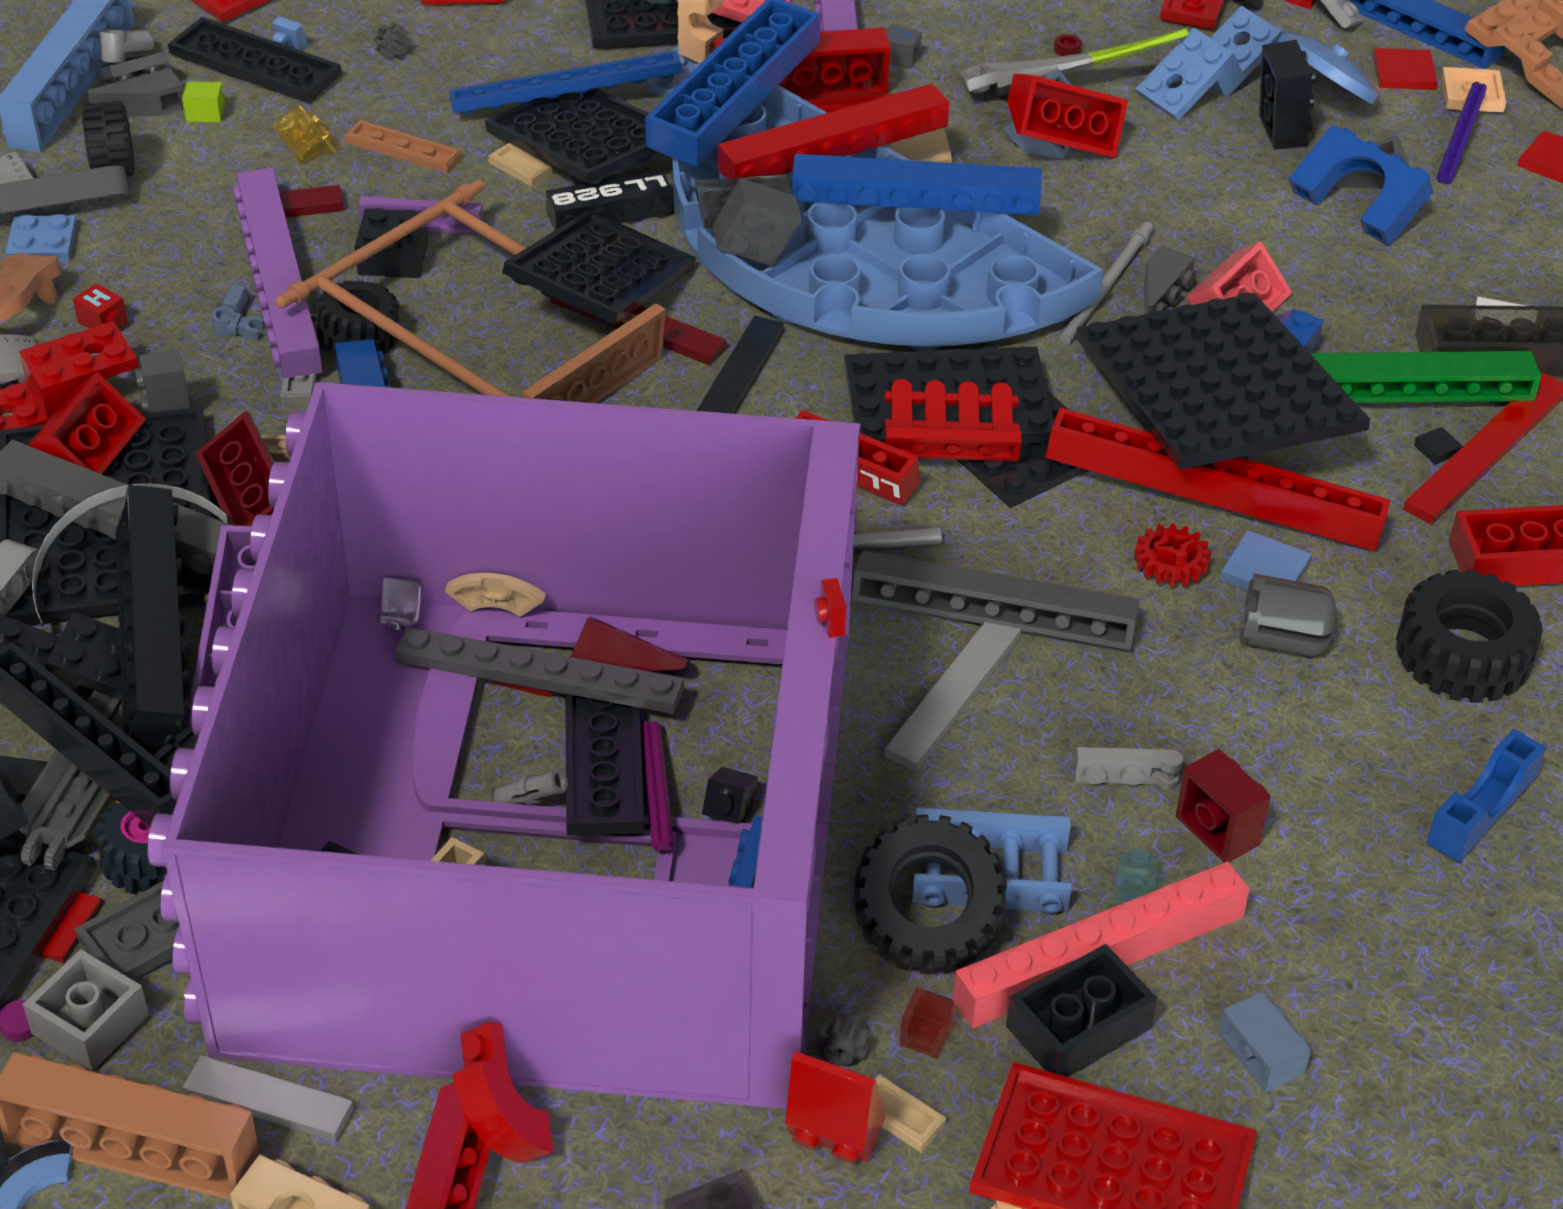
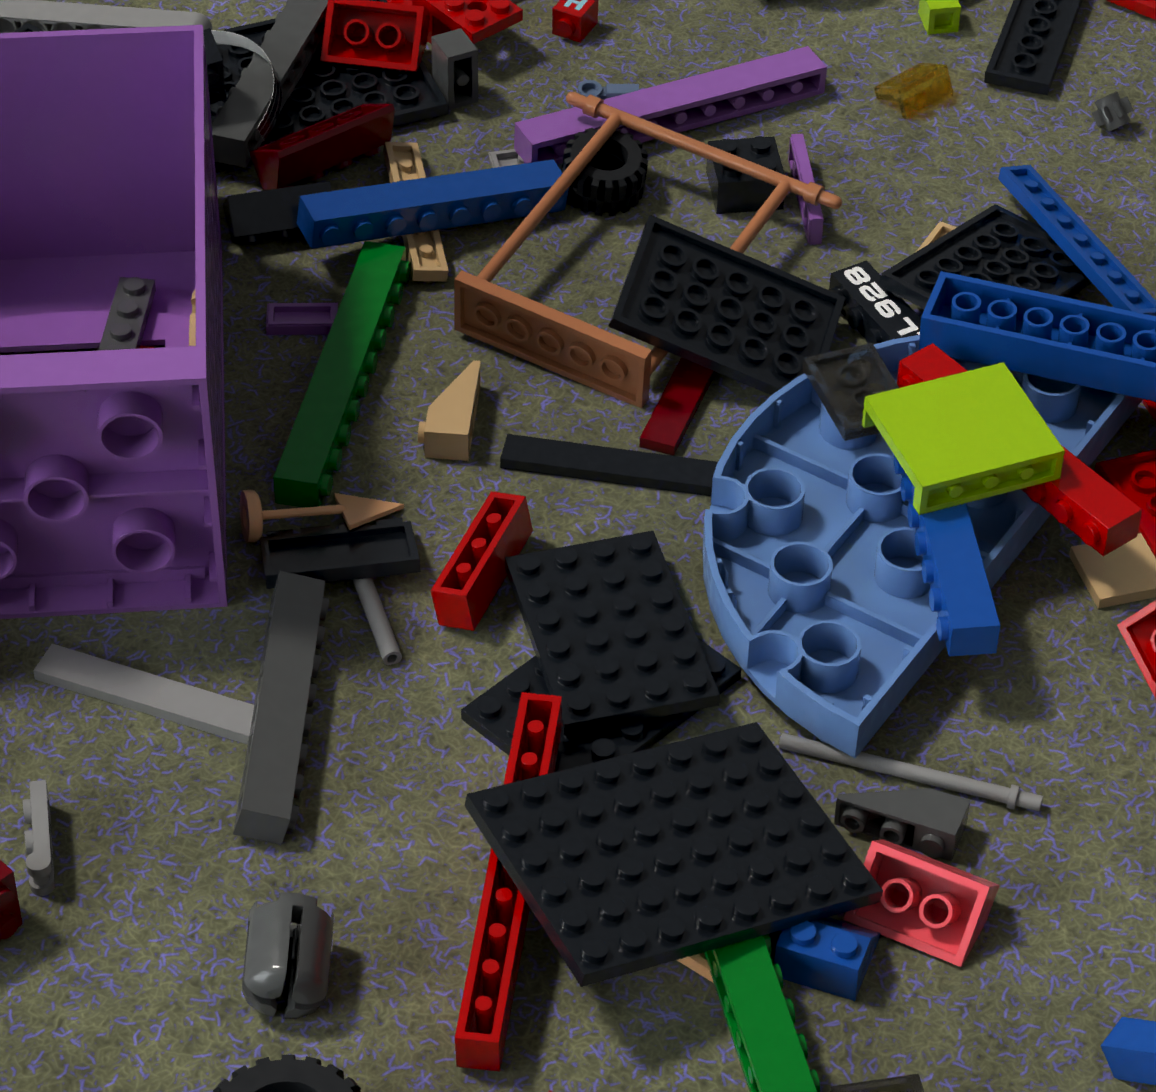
camera: 80 degrees right, 0 degrees up
(289, 33) = (1089, 41): medium blue tile -> none
(312, 201) = (810, 116): dark red tile -> none
(400, 603) = (177, 276): clear purple bracket -> none
(403, 146) = (935, 161): nougat tile -> none
(756, 222) = (804, 397): dark grey brick -> none
(847, 135) = (965, 437): none -> lime panel
(951, 439) = (543, 637): red fence -> none
(1172, 555) = (389, 858): red gear -> none
(1263, 557) = (402, 955): medium blue tile -> none

